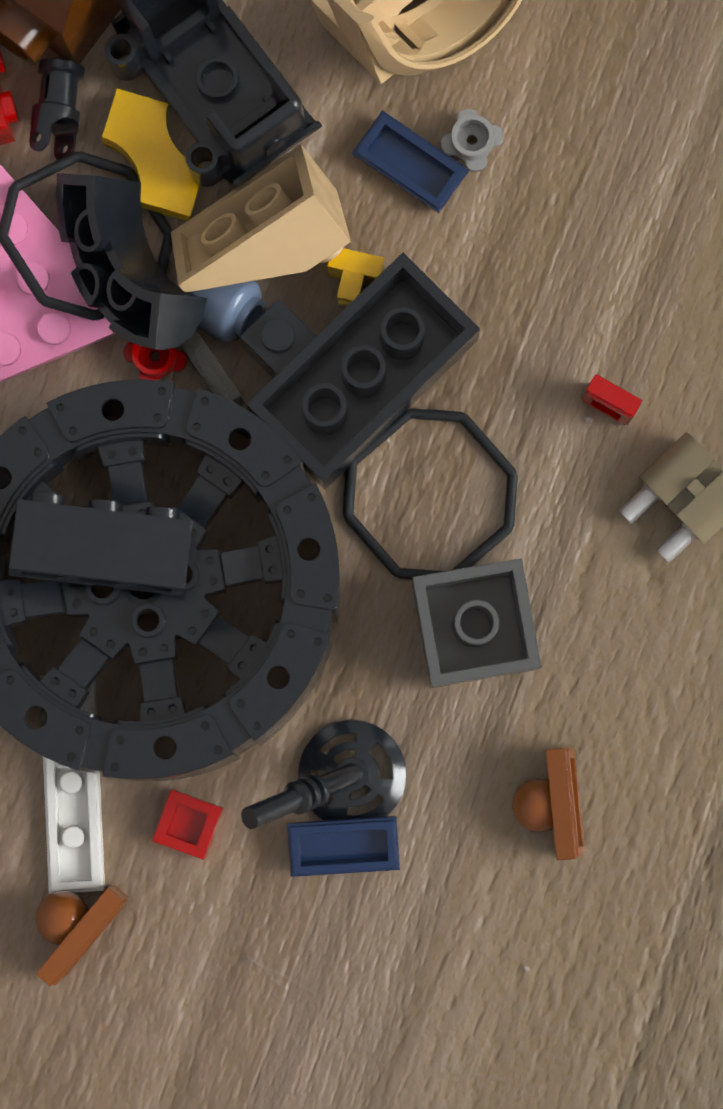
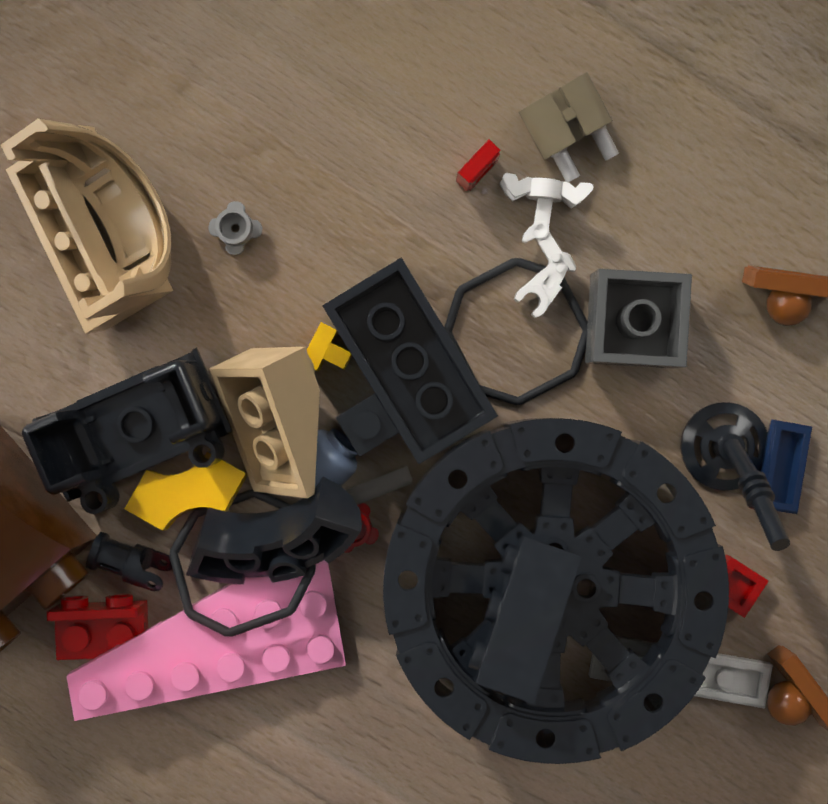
camera: 75 degrees left, 5 degrees up
(410, 162) = (241, 282): dark blue tile -> none
(496, 513) = (545, 191): none -> white piece

